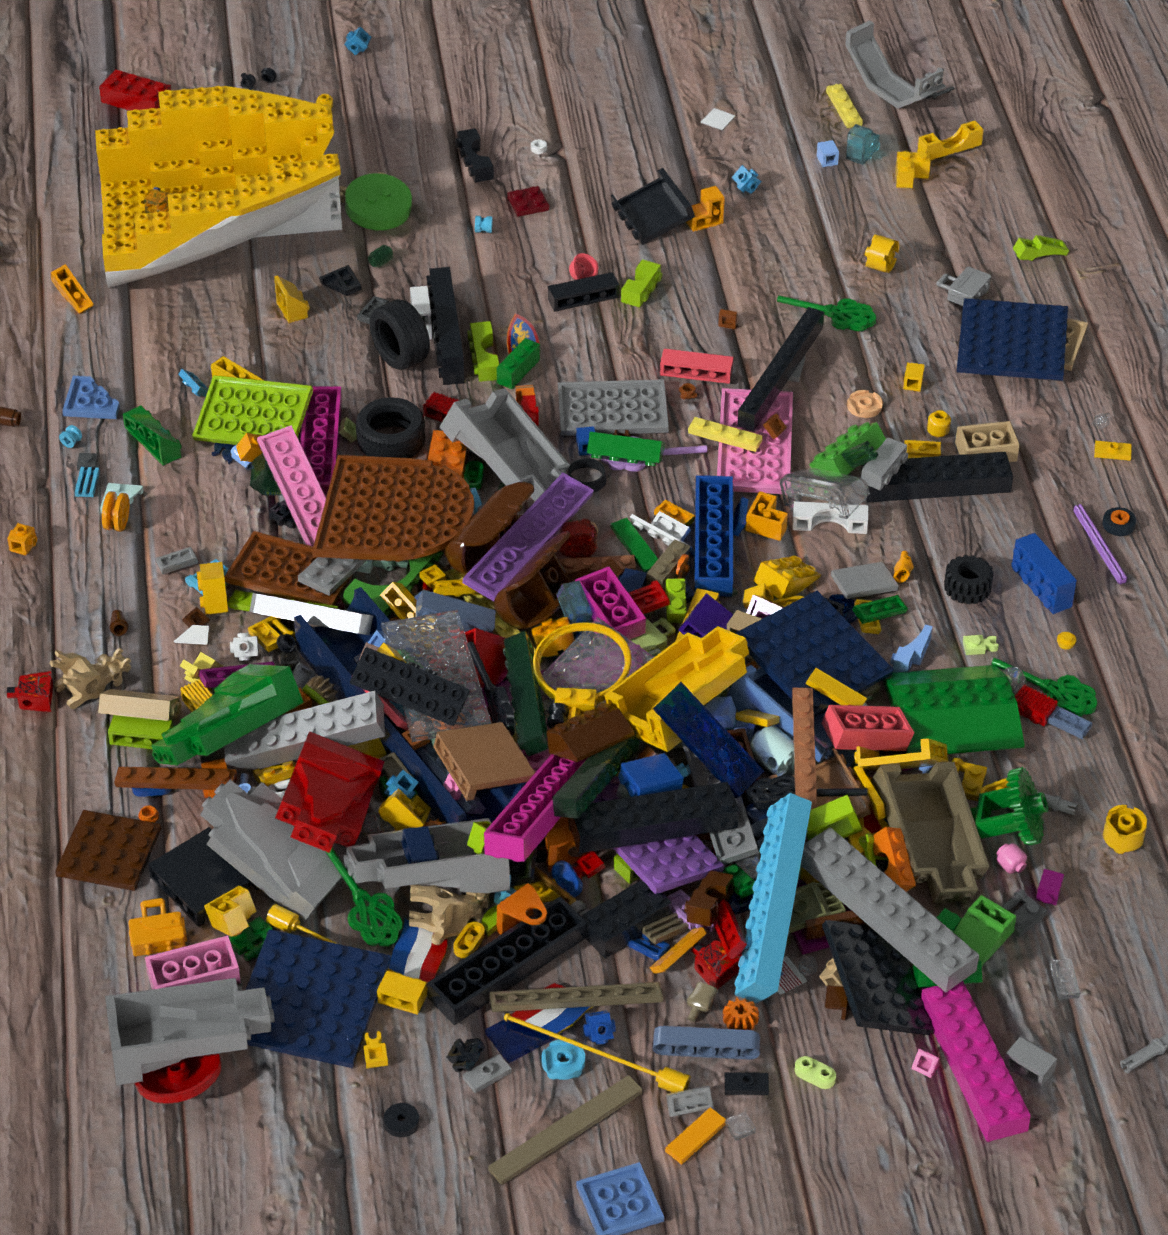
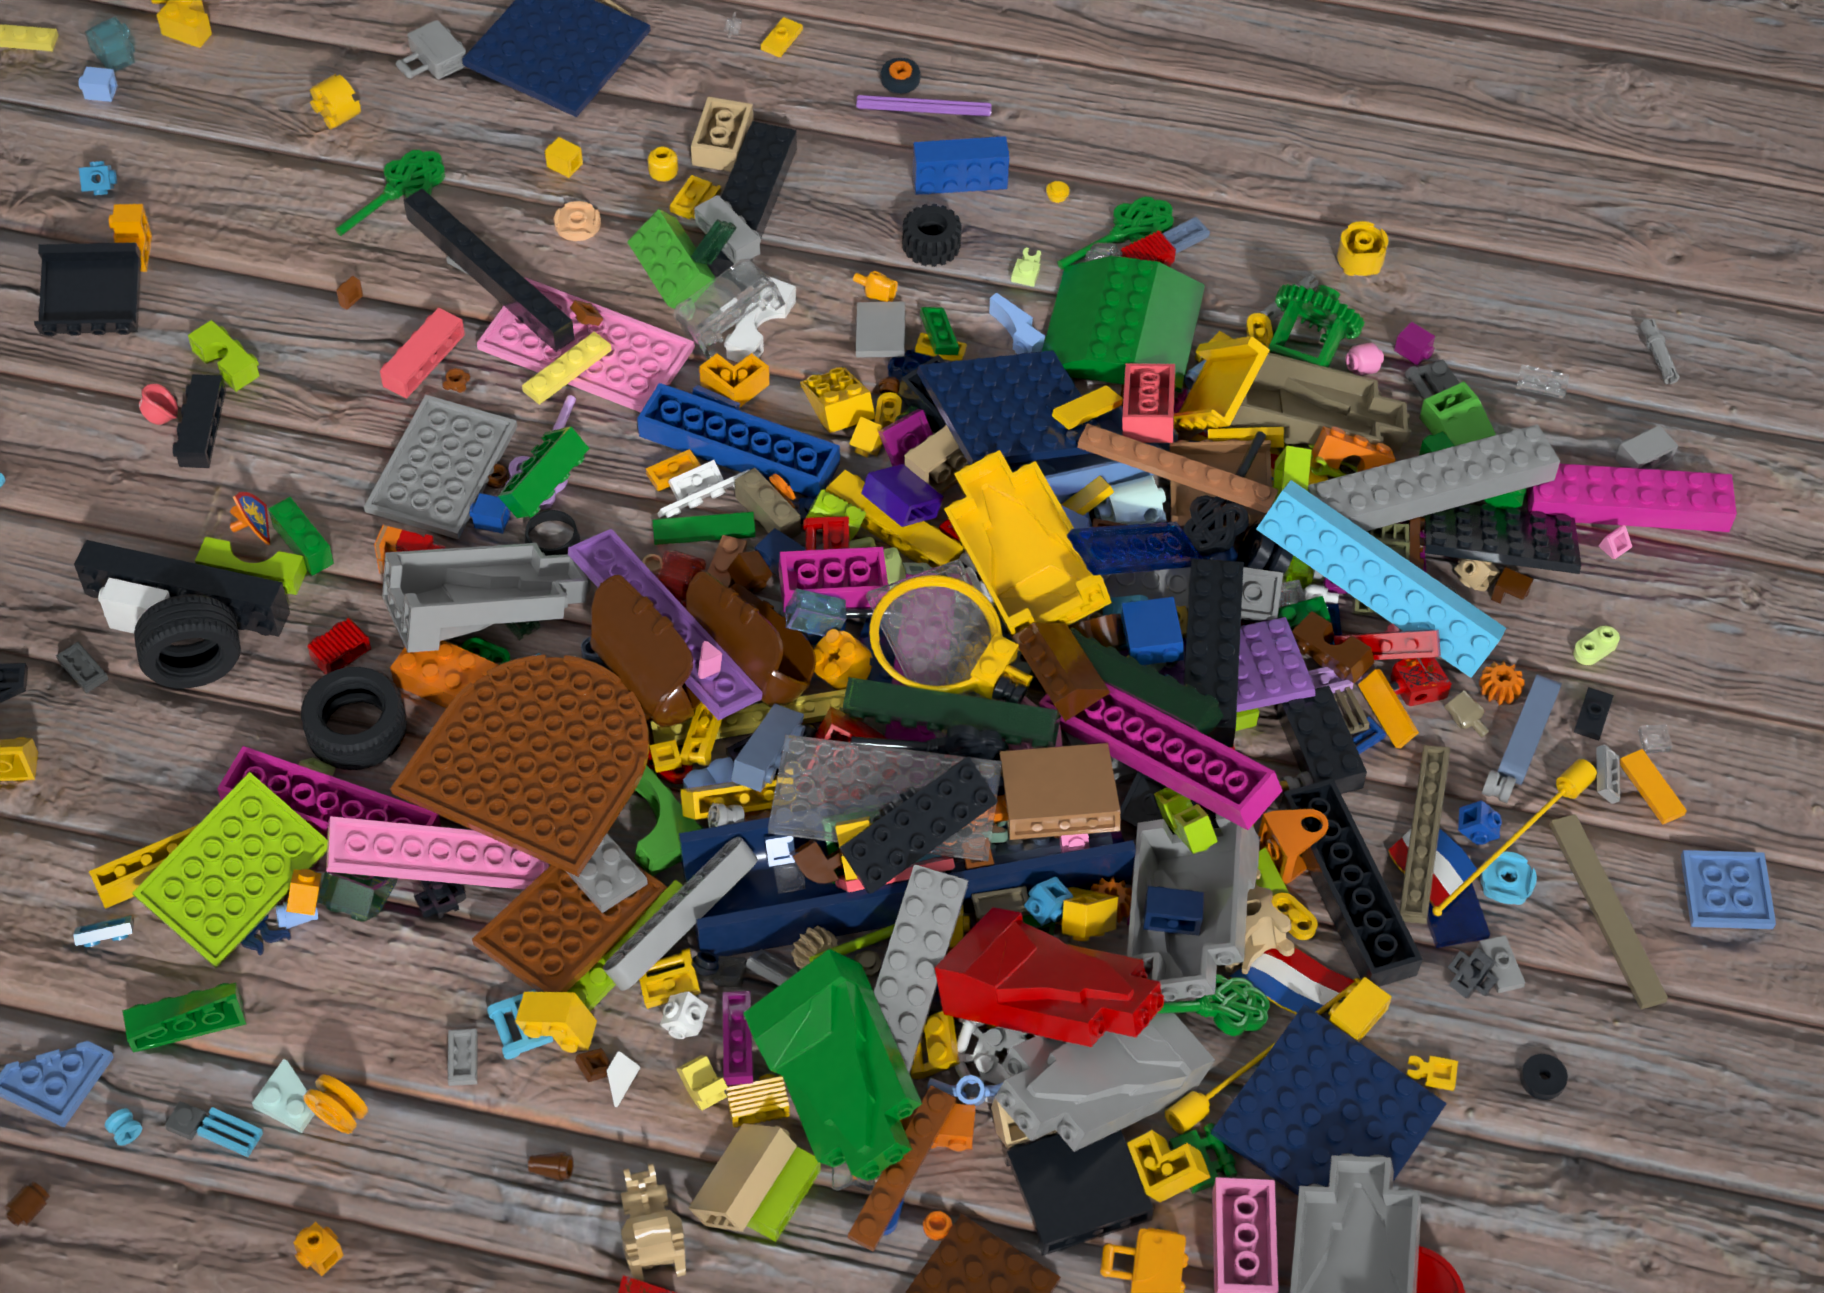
camera: 70 degrees left, 10 degrees up
(387, 606) = (721, 815): none -> light grey wheel
(498, 557) = (709, 660): none -> bright pink slope
(642, 1034) = (1499, 786): none -> light grey wheel

